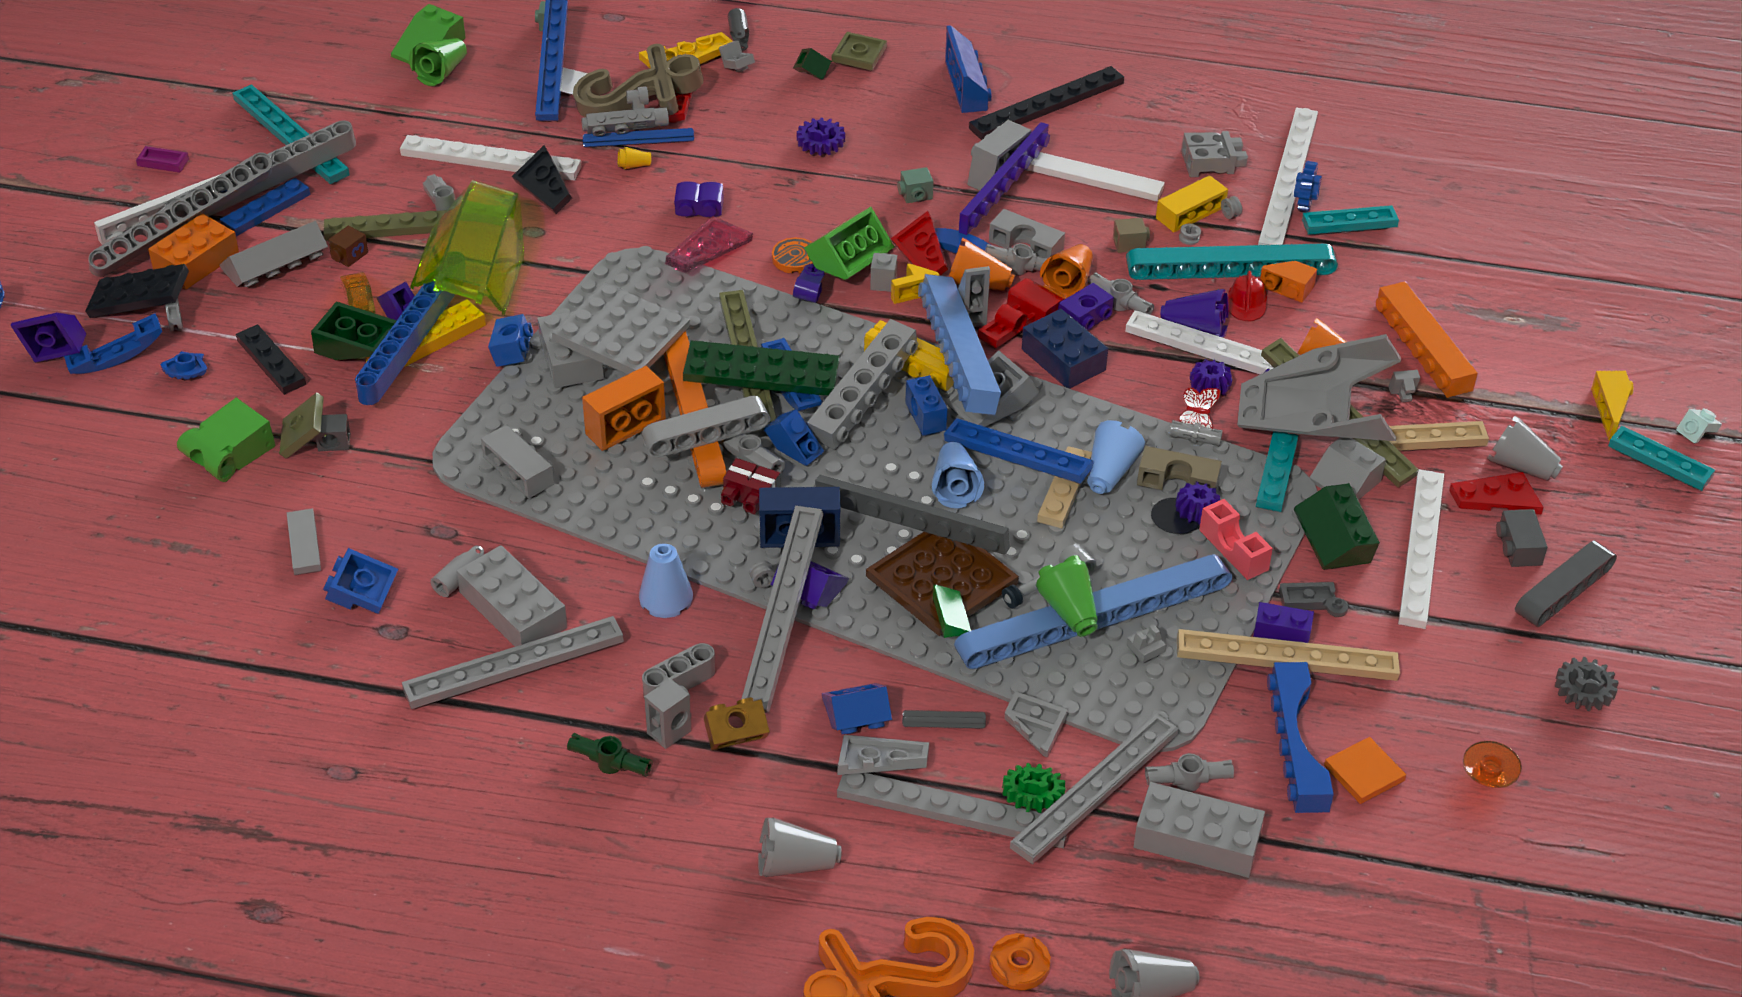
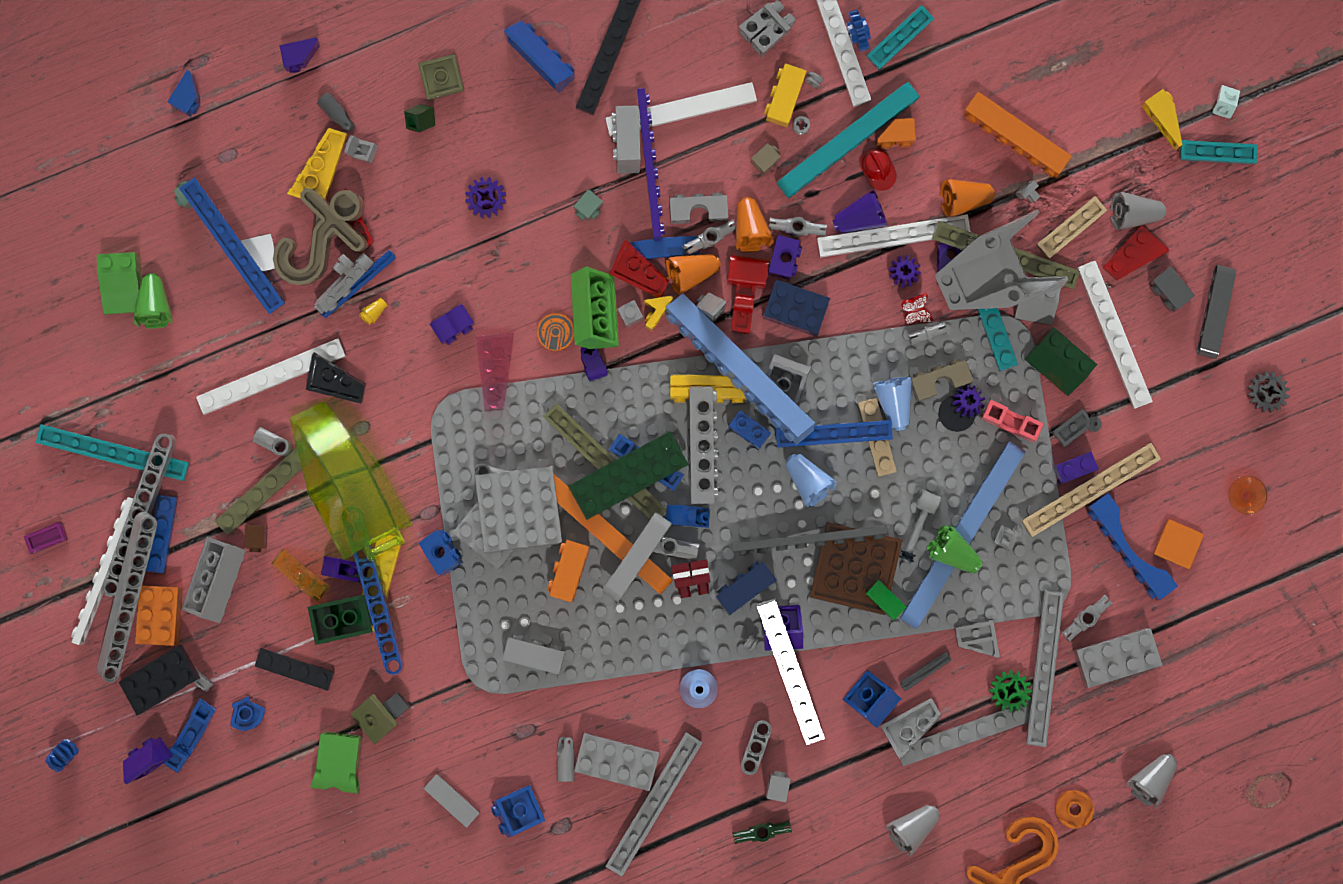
camera: 35 degrees left, 40 degrees up
(723, 735) = (827, 762): pearl gold brick -> none

